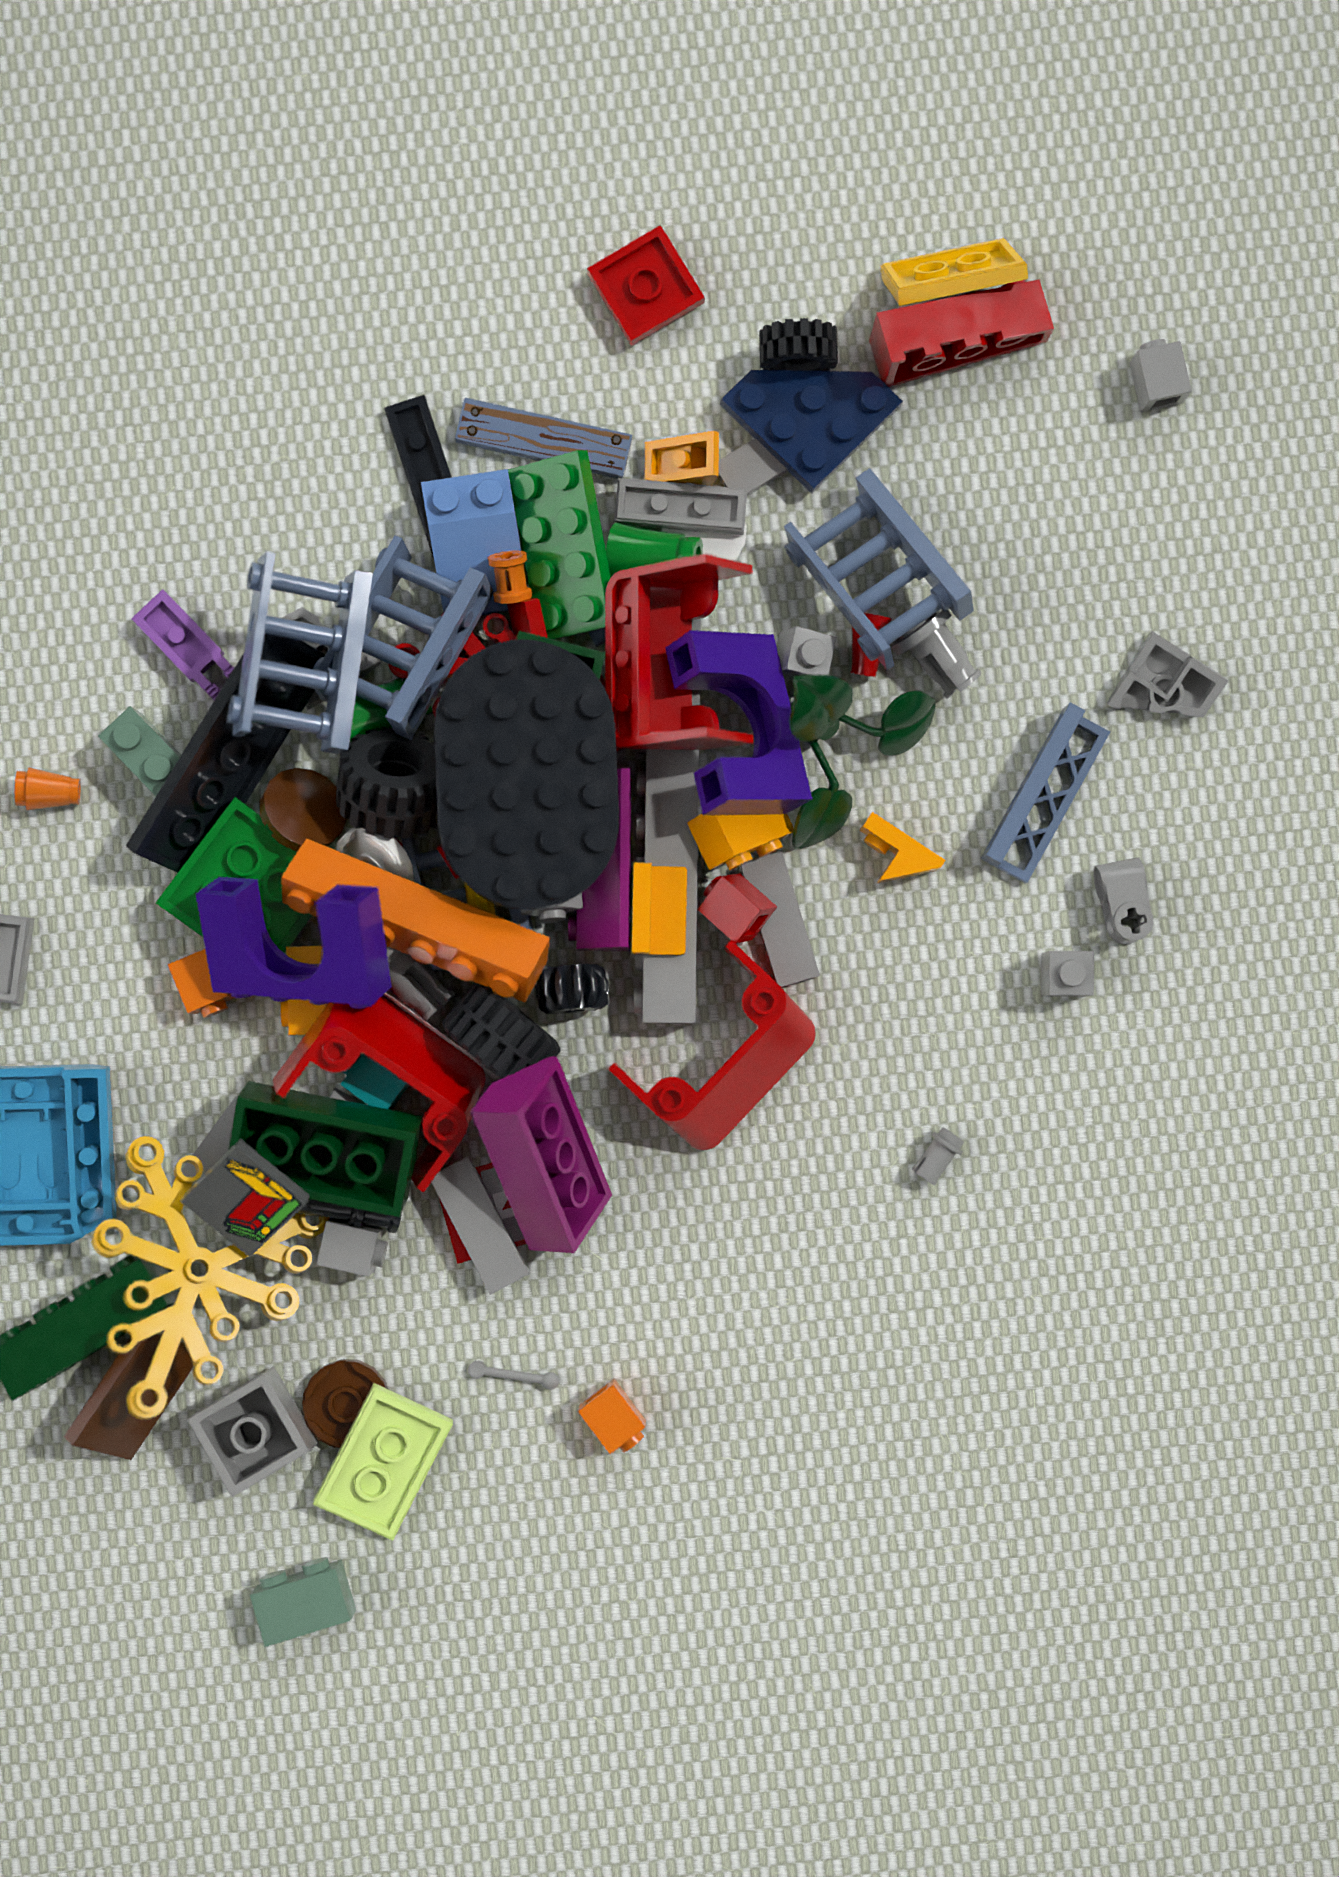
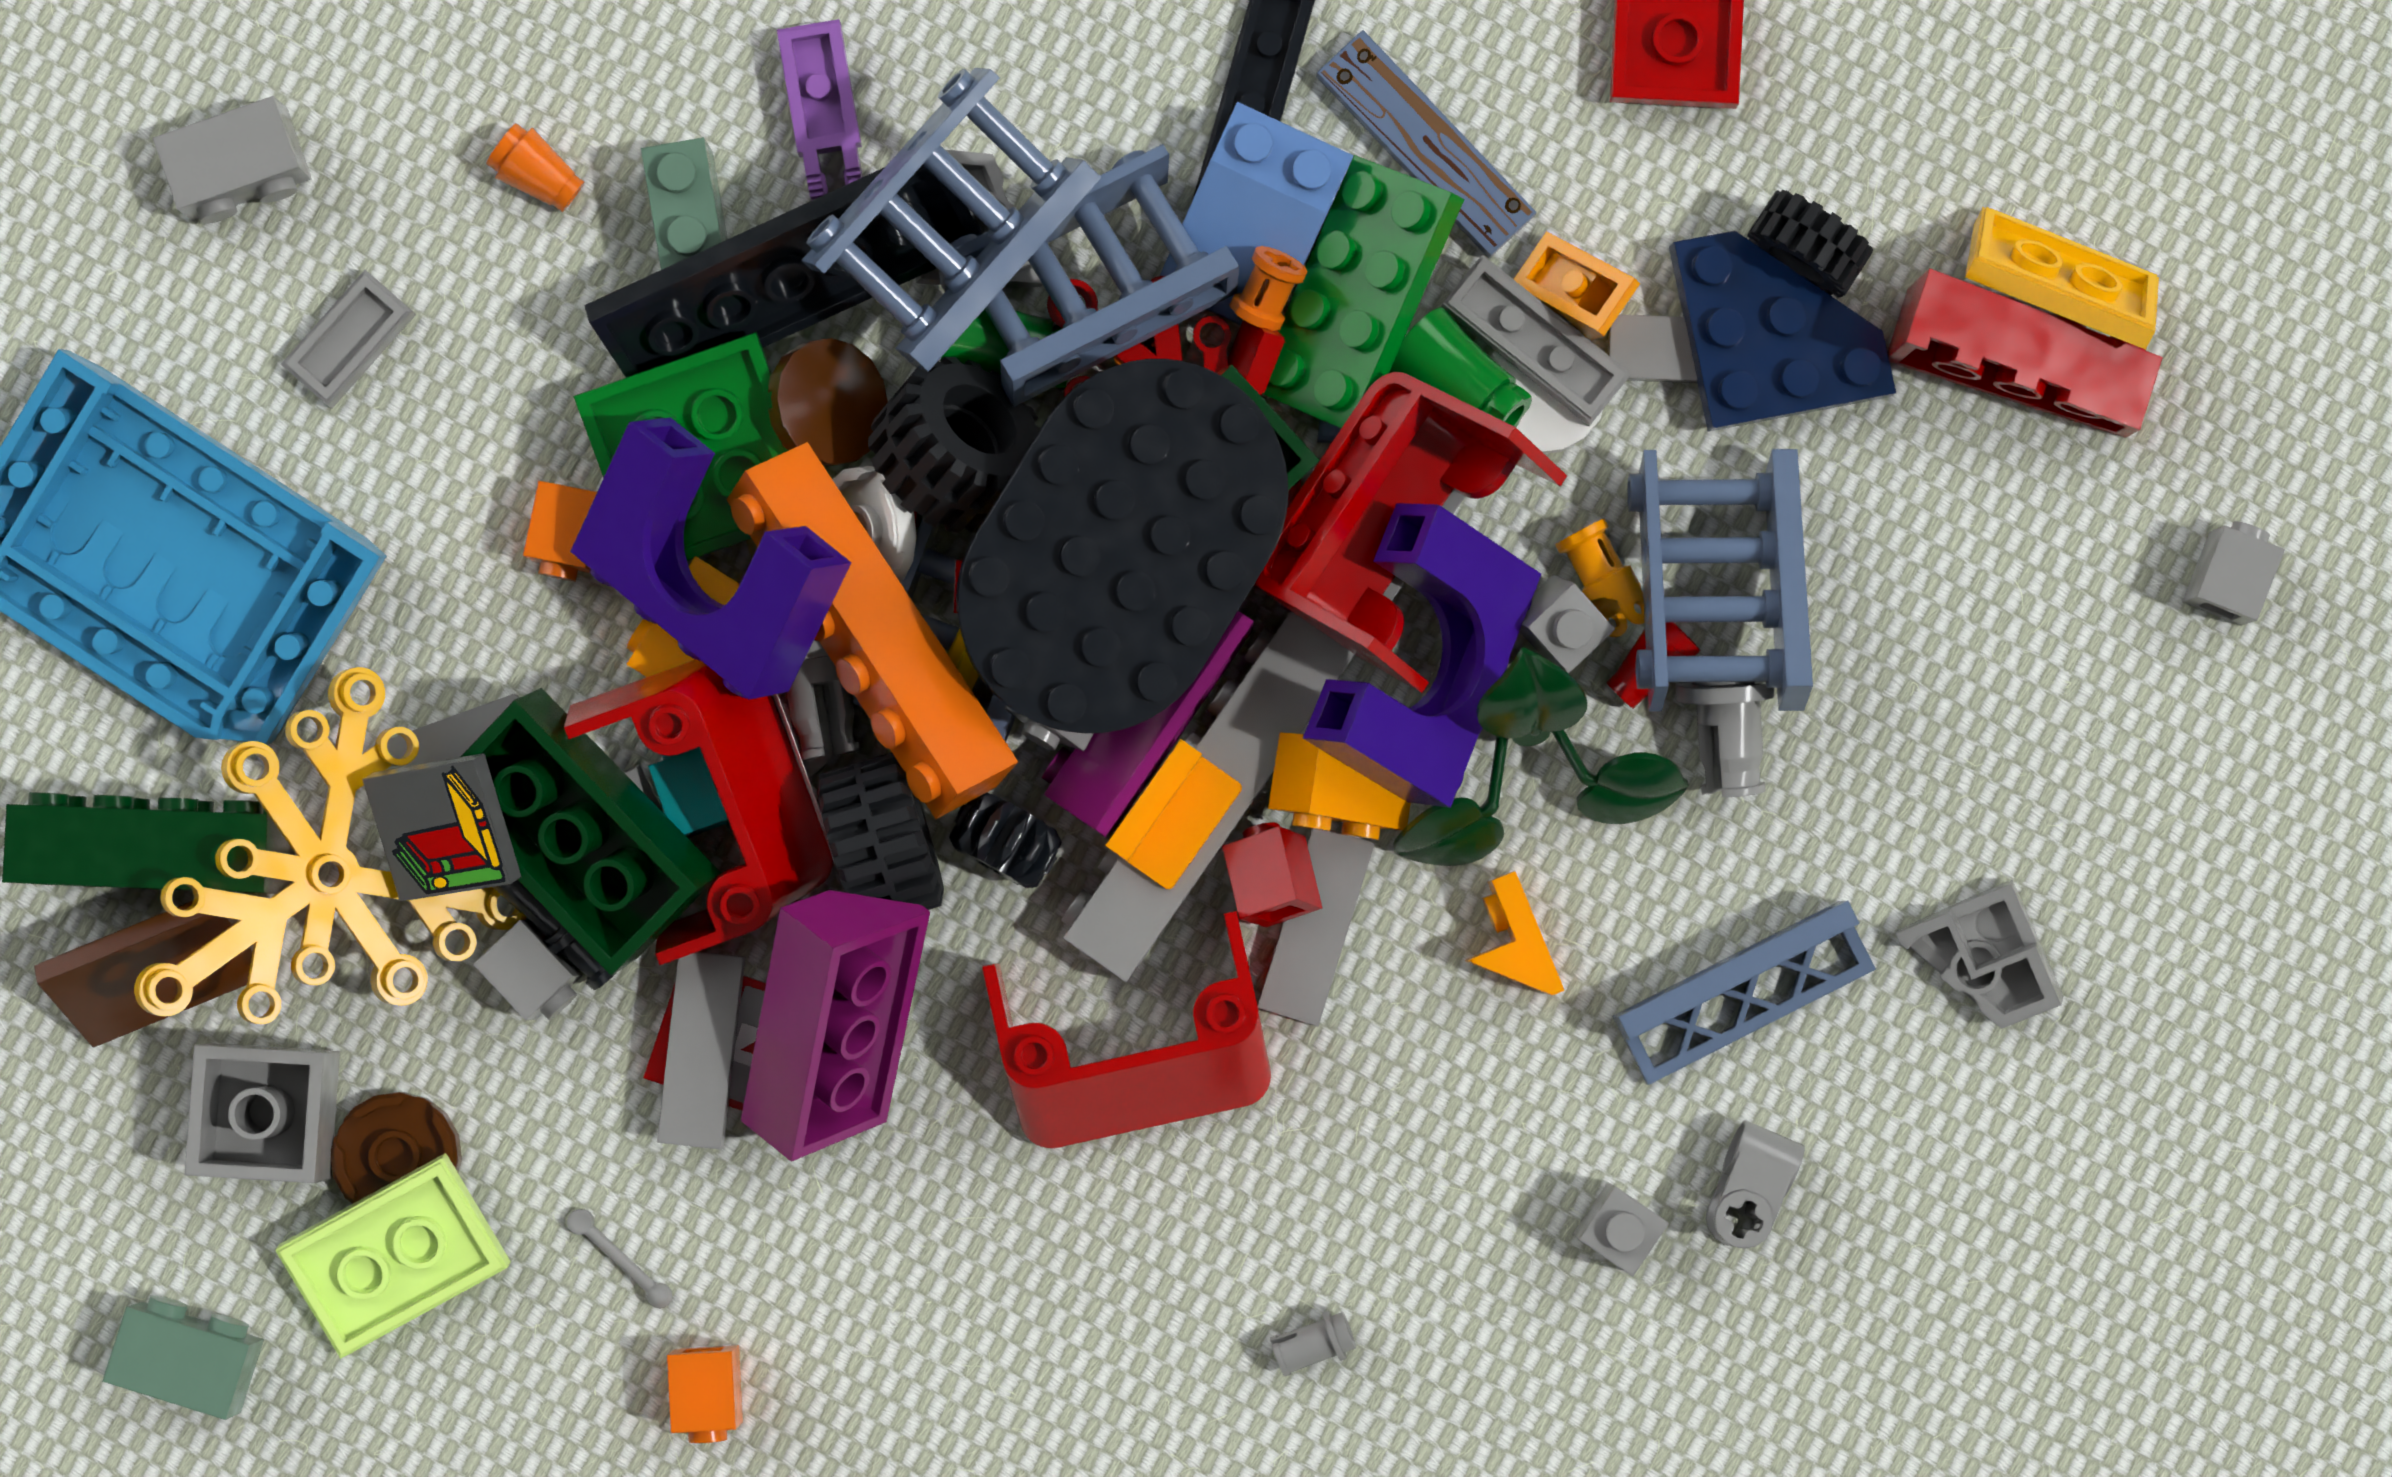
camera: 35 degrees right, 0 degrees up
(808, 612) = (1604, 578): none -> light orange piece

